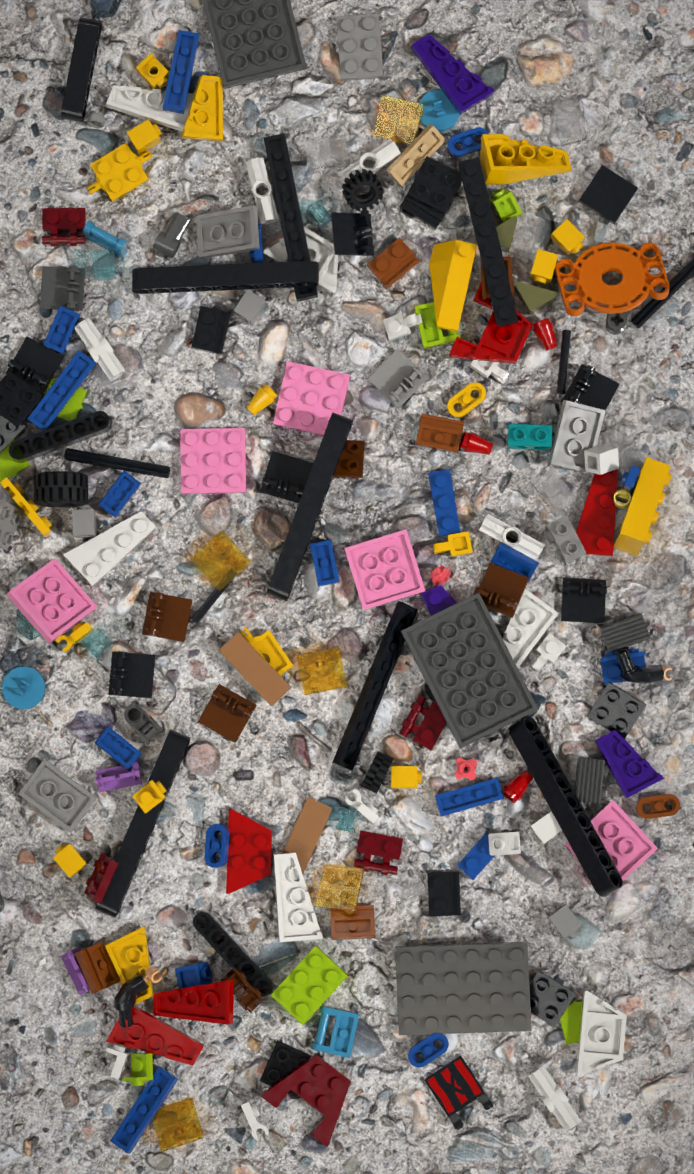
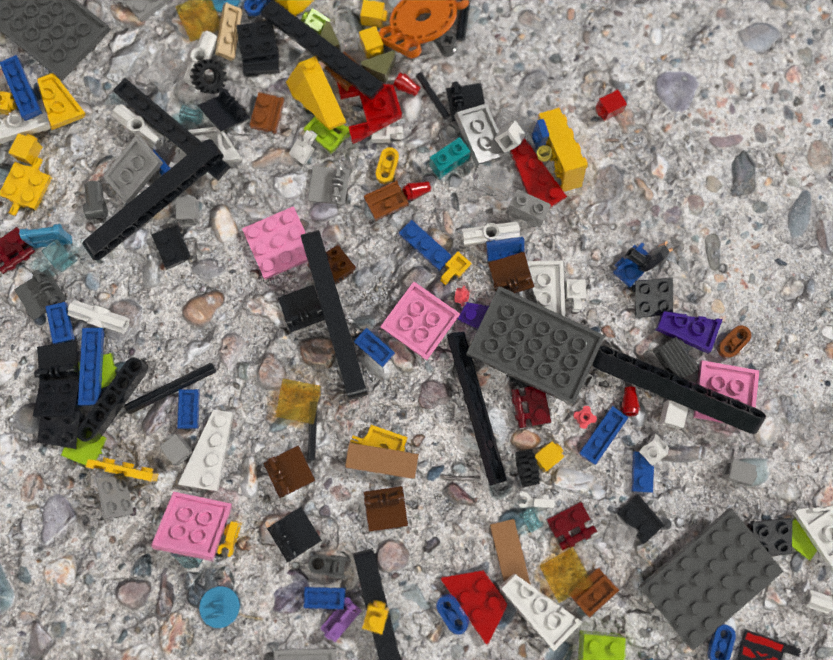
camera: 50 degrees left, 5 degrees down
(60, 489) = (139, 437): black tyre -> none
(97, 643) = (251, 531): clear light blue panel -> none
(213, 461) = (240, 335): bright pink plate -> none
(261, 399) = (243, 267): yellow cone -> none
(321, 670) = (430, 425): clear yellow hinge -> none
(583, 600) = (571, 240): black hinge -> none
(624, 632) = (617, 240): dark grey brick -> none

